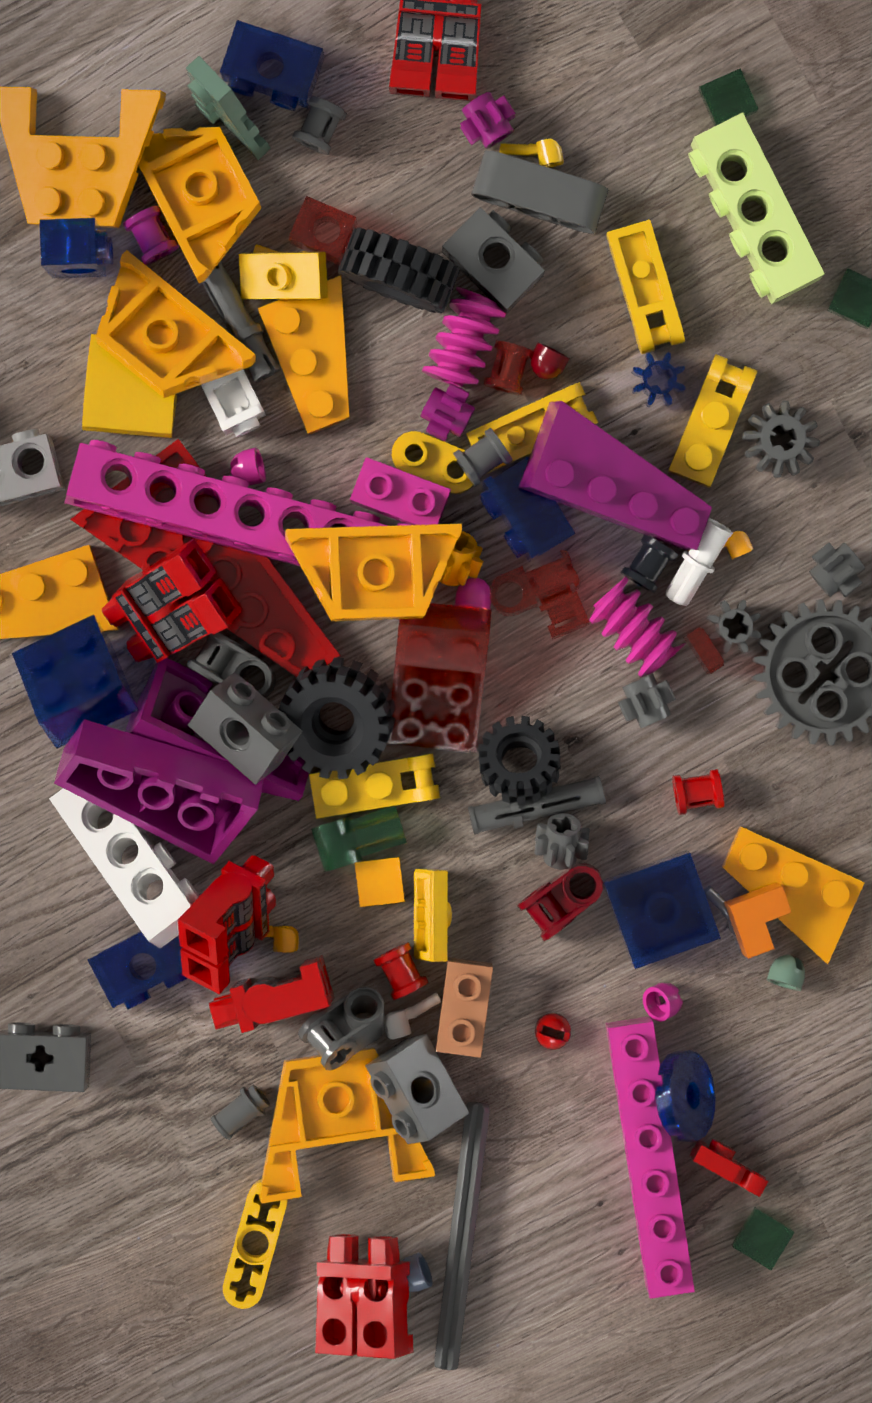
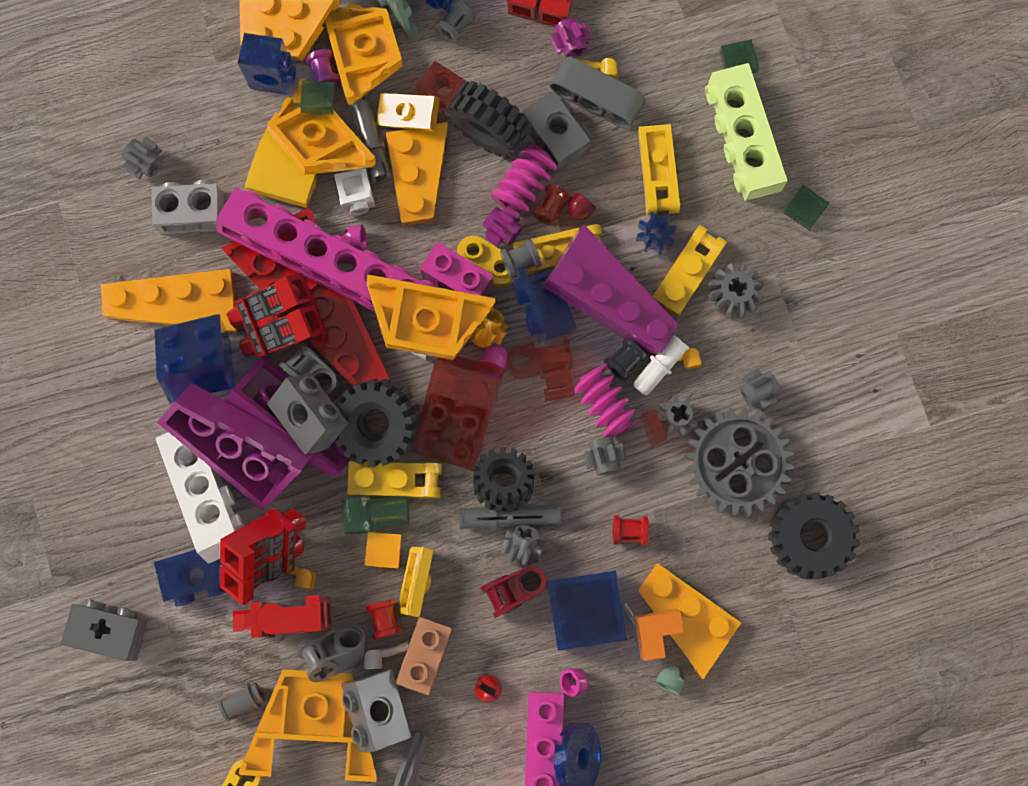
camera: 10 degrees right, 10 degrees down
(155, 281) = (317, 97): none -> clear green tile

